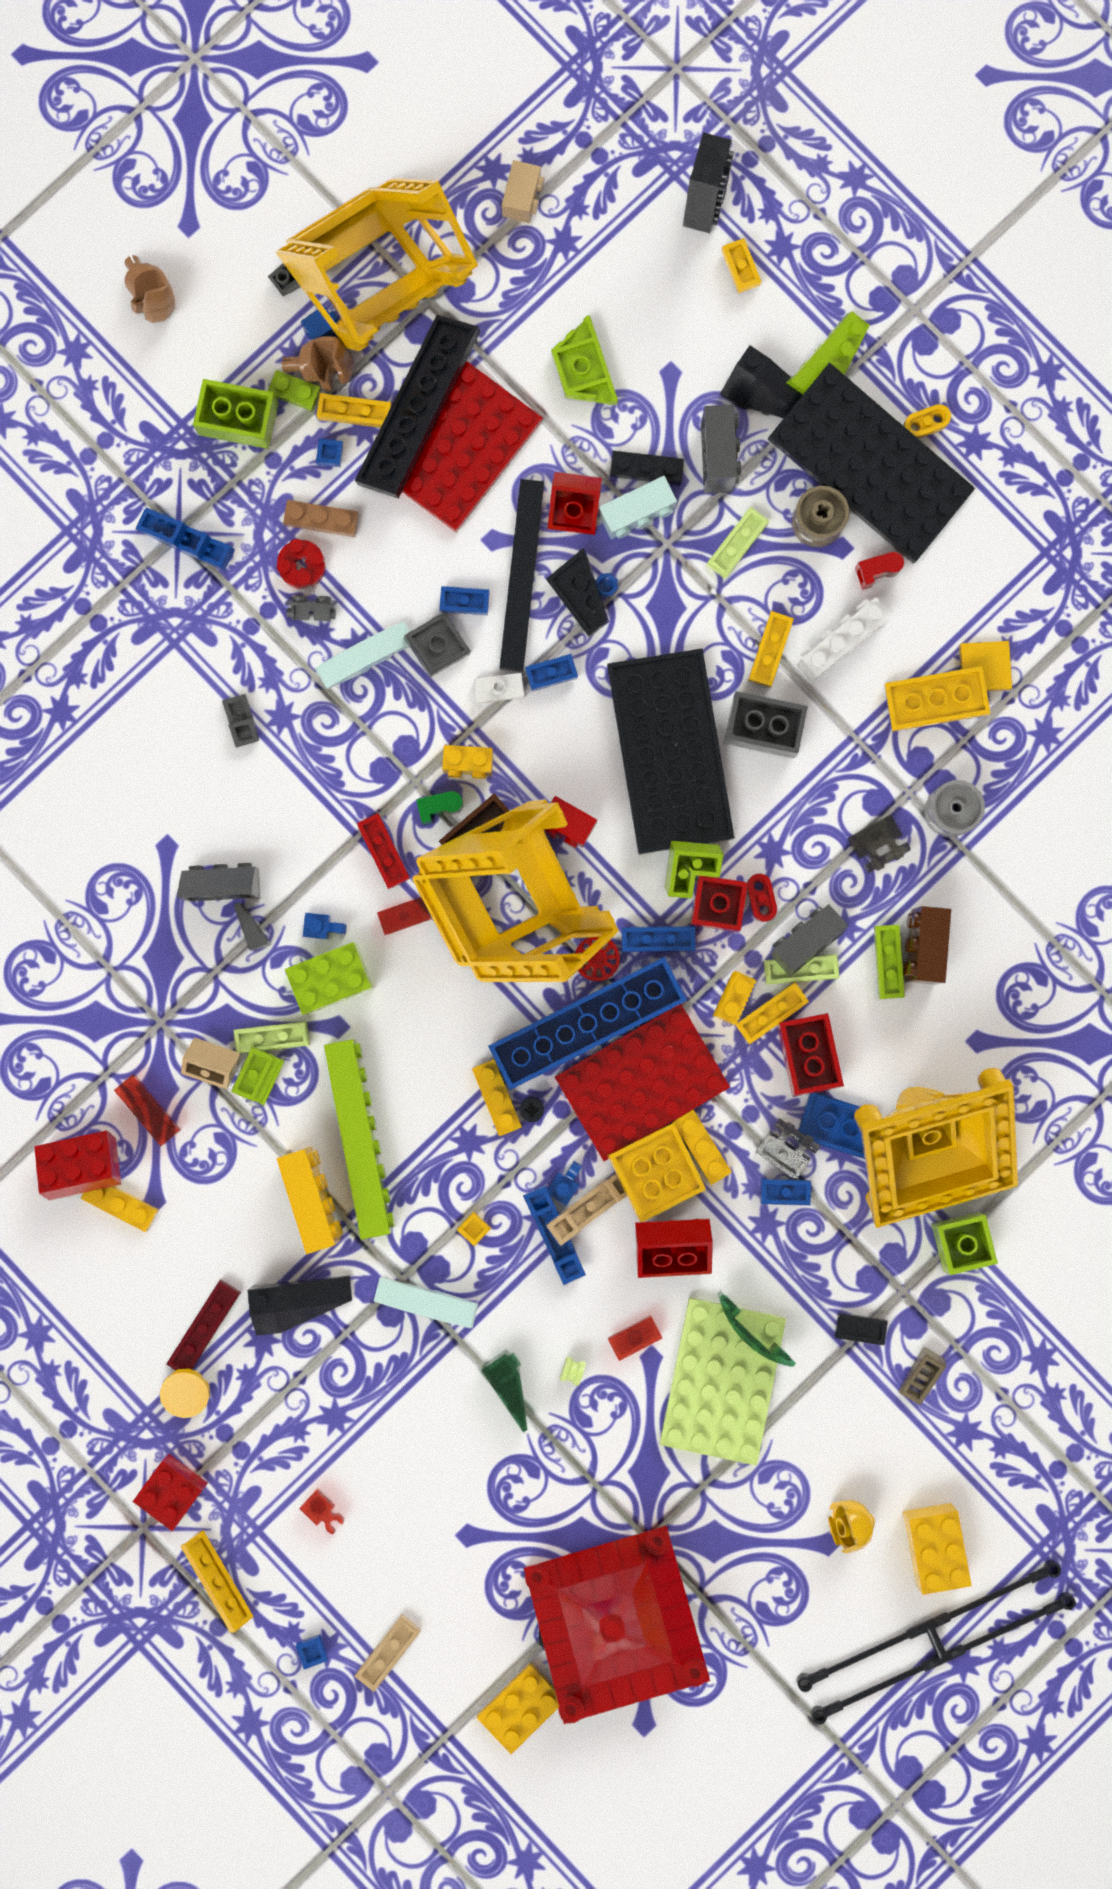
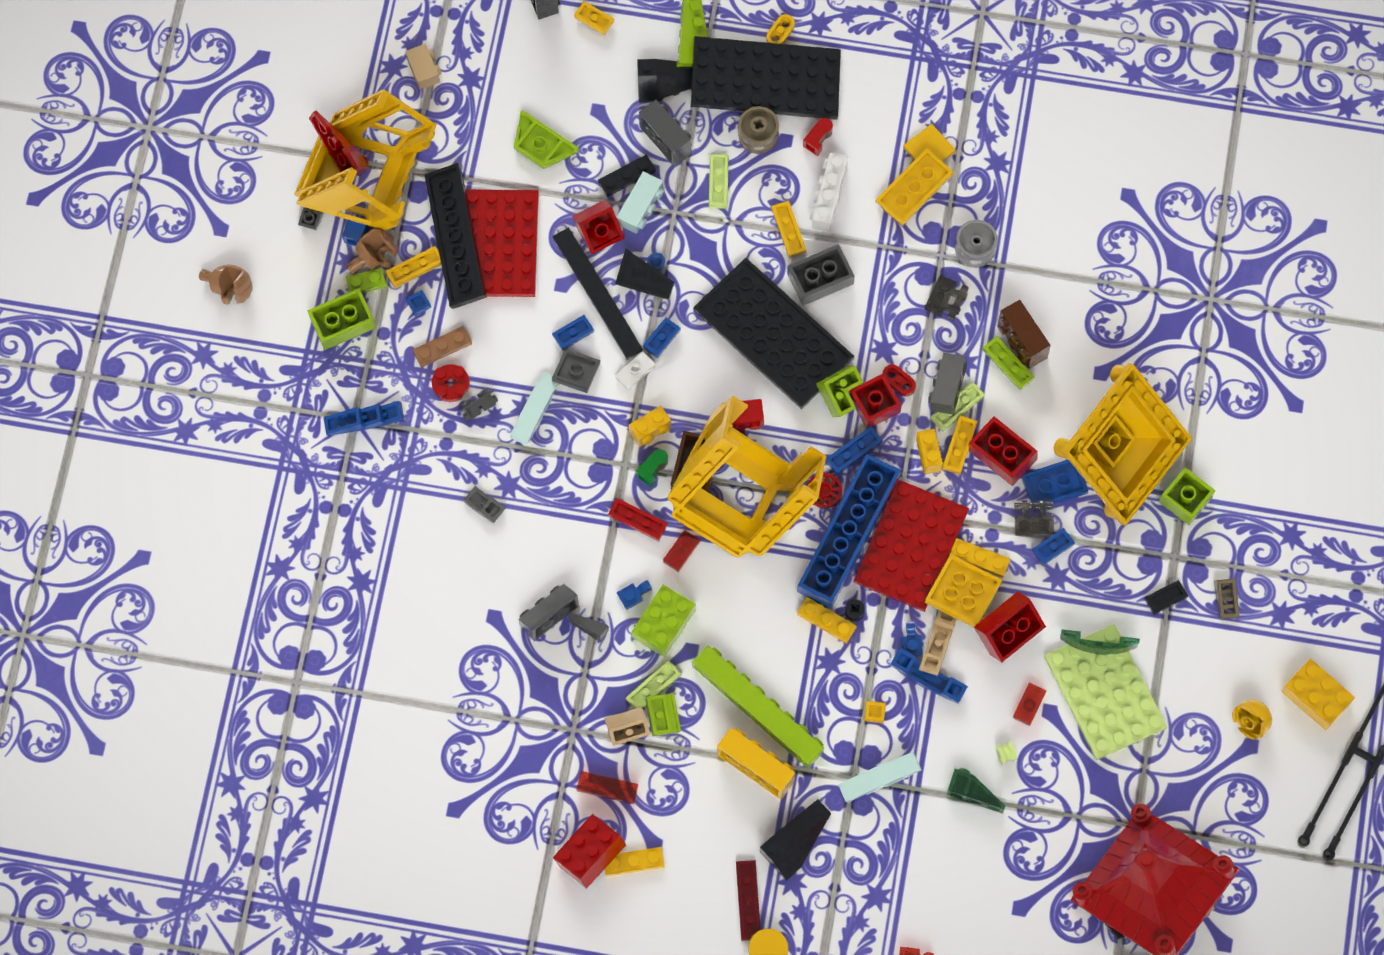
camera: 35 degrees left, 15 degrees down
(368, 235) = (339, 147): none -> red wedge

